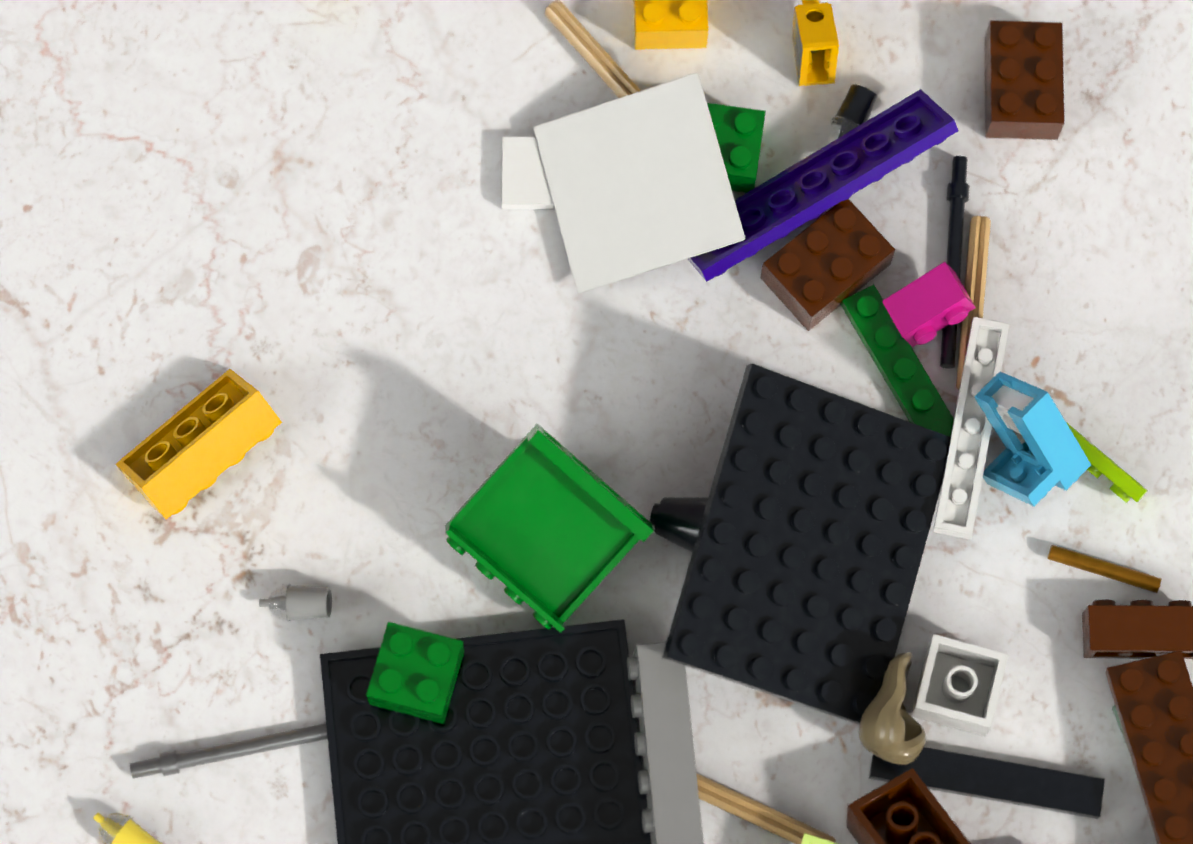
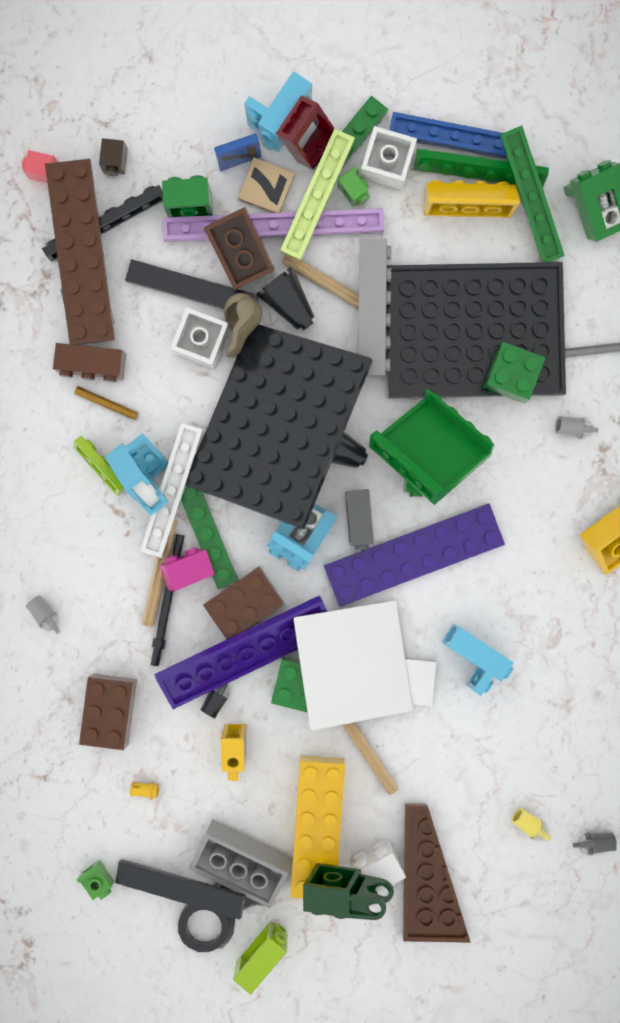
camera: 170 degrees left, 15 degrees up
(435, 217) = (489, 661): none -> medium azure brick
(553, 370) = (414, 554): none -> dark purple plate
(654, 410) = (359, 519): none -> dark grey window
(741, 346) = (294, 551): none -> medium azure brick
(818, 769) = (288, 299): none -> black cone
(1151, 217) = (44, 614): none -> light grey piece

